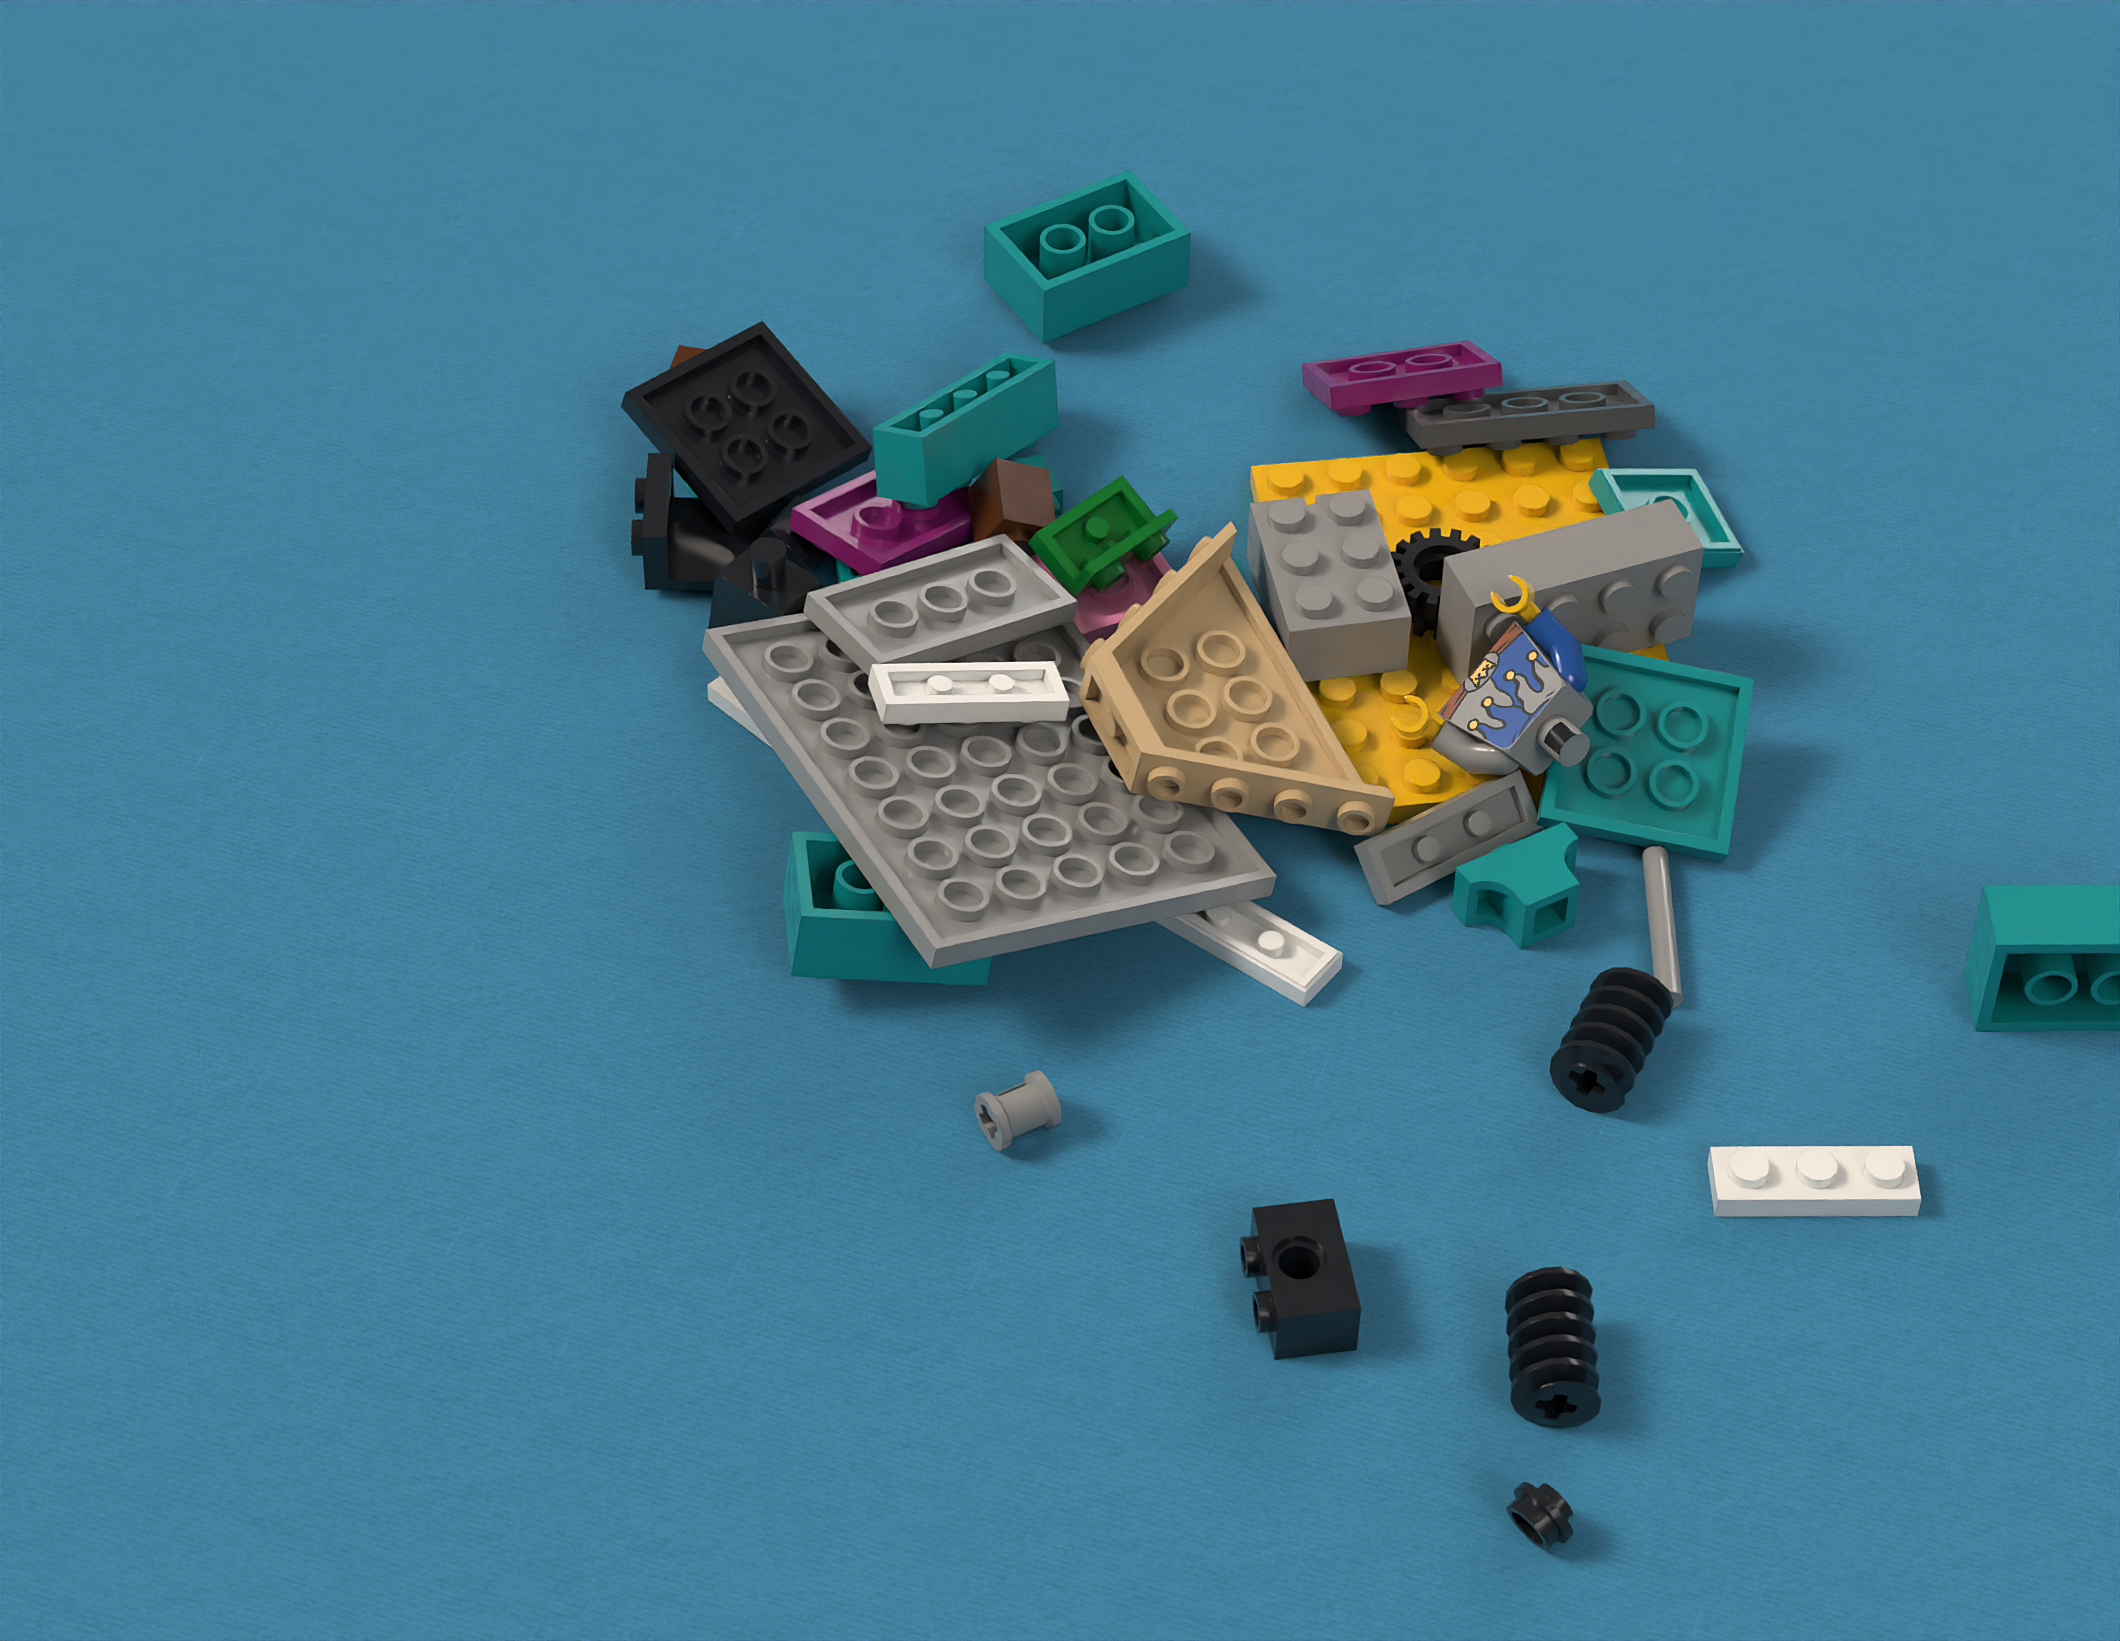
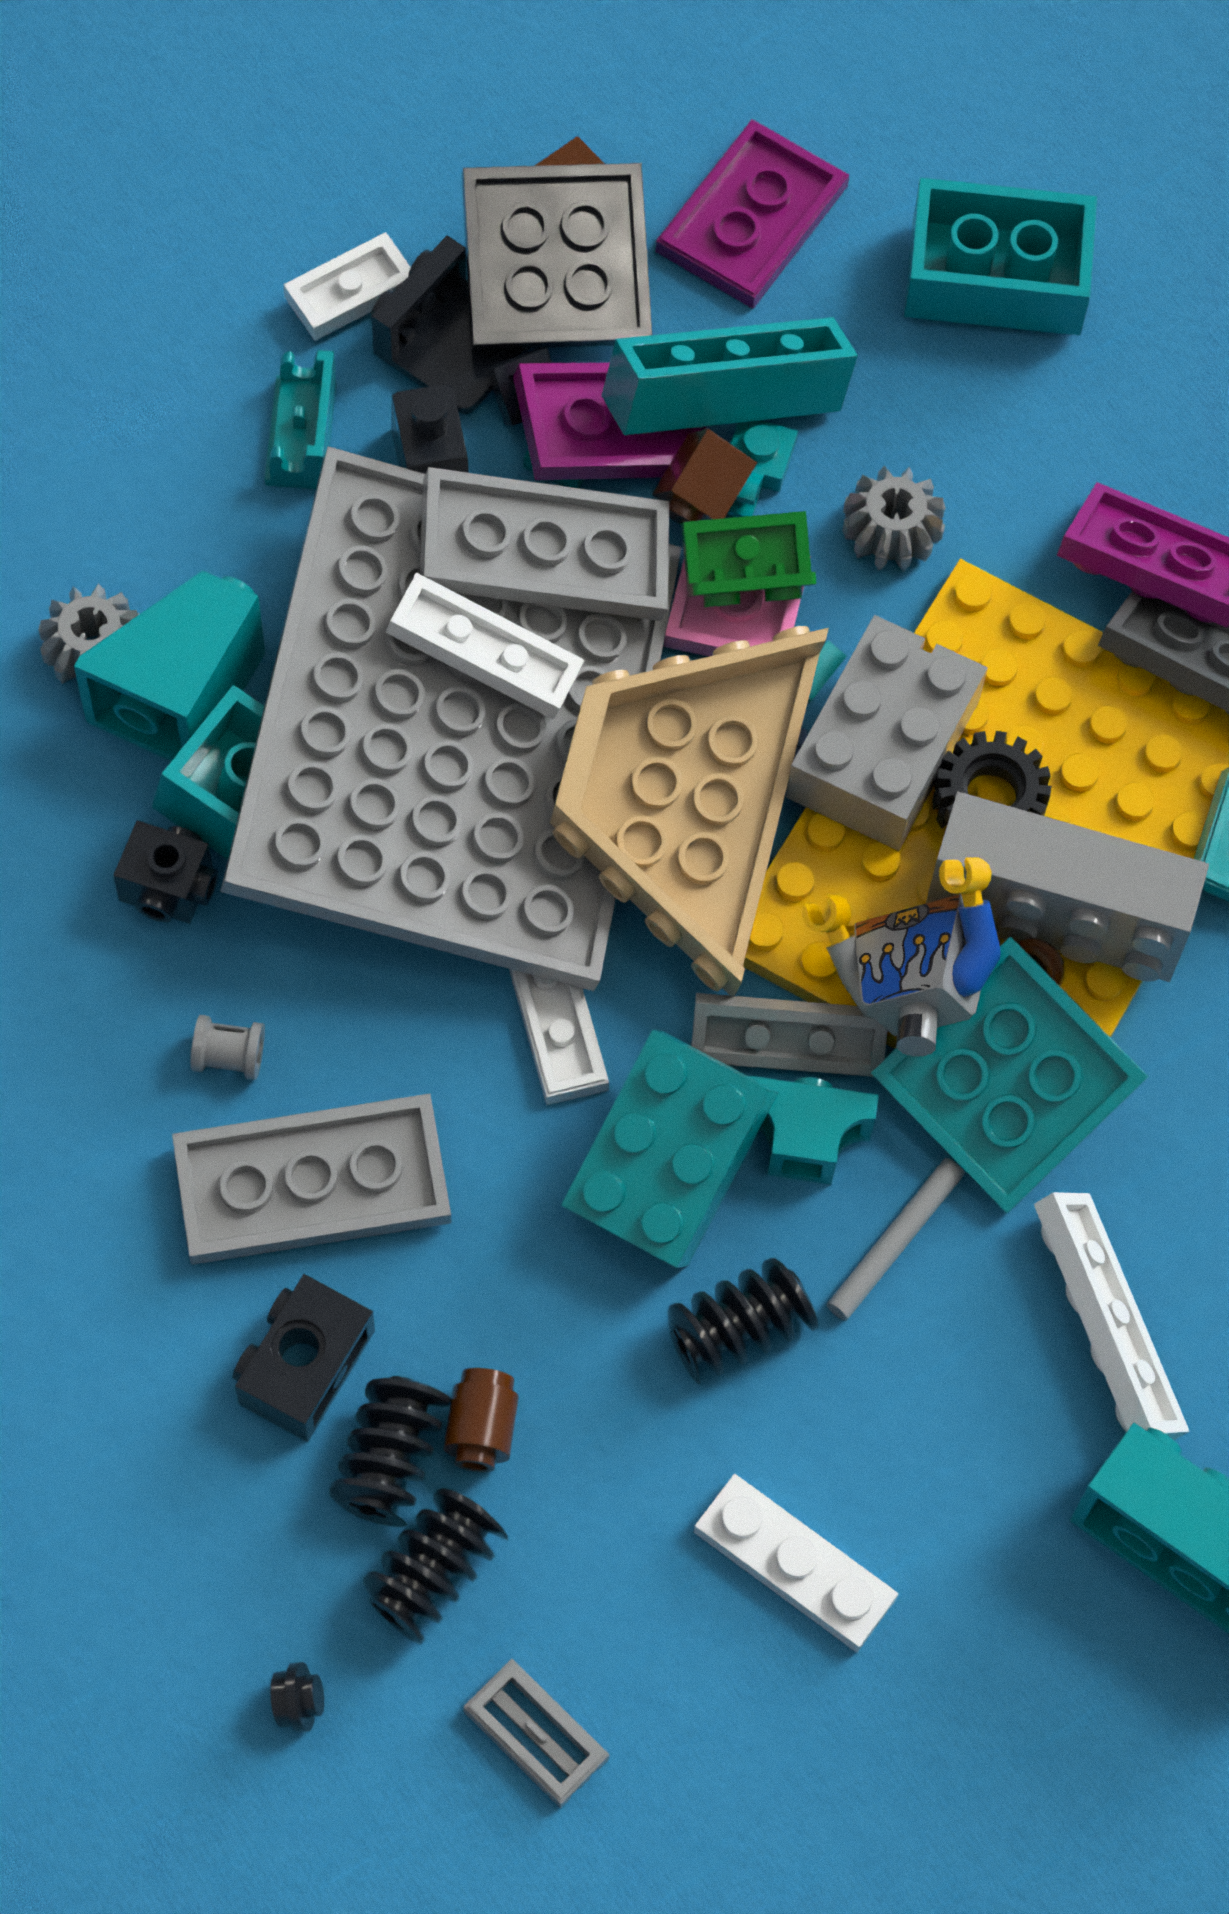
camera: 35 degrees right, 20 degrees up
(582, 551) = (346, 286): none -> white plate
(613, 899) = (74, 622): none -> light grey gear
(638, 659) = (301, 421): none -> teal hinge
(718, 871) = (173, 663): none -> teal slope
(847, 1016) = (165, 872): none -> black brick
(858, 338) = (752, 213): none -> magenta tile
(1176, 465) = (893, 518): none -> light grey gear
(1177, 1159) = (311, 1178): none -> light grey plate
(1438, 1296) = (385, 1448): none -> black piece
(1450, 946) = (669, 1149): none -> teal brick
(1485, 1231) = (481, 1419): none -> reddish brown brick
(1743, 1432) = (577, 1774): none -> light grey tile
(1845, 864) = (1109, 1314): none -> white plate

